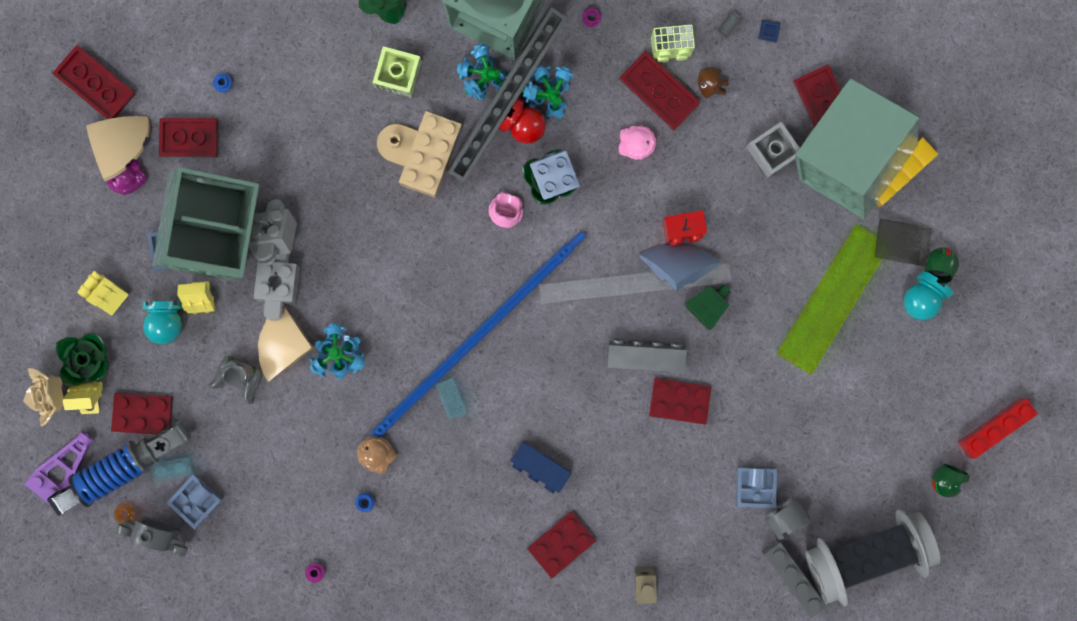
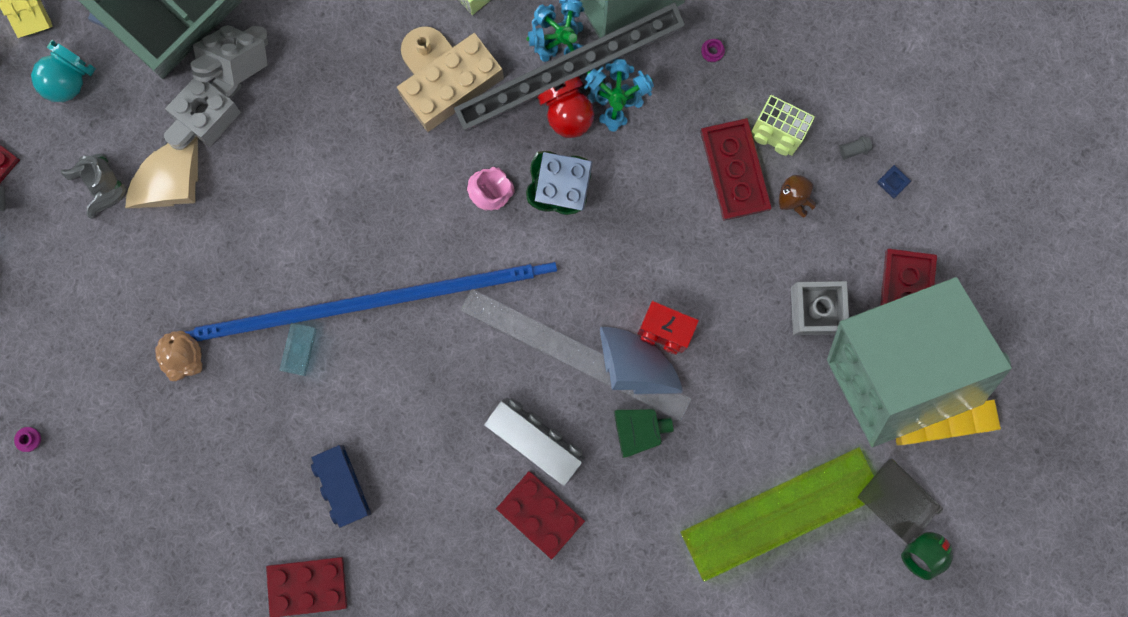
camera: 30 degrees right, 5 degrees down
(196, 297) = (110, 71): light yellow piece -> none
(327, 348) = (206, 217): dark azure plant -> none
(358, 502) = (125, 399): blue plate -> none
(635, 140) = (672, 207): bright pink hair -> none
(925, 299) = (886, 581): teal tile -> none

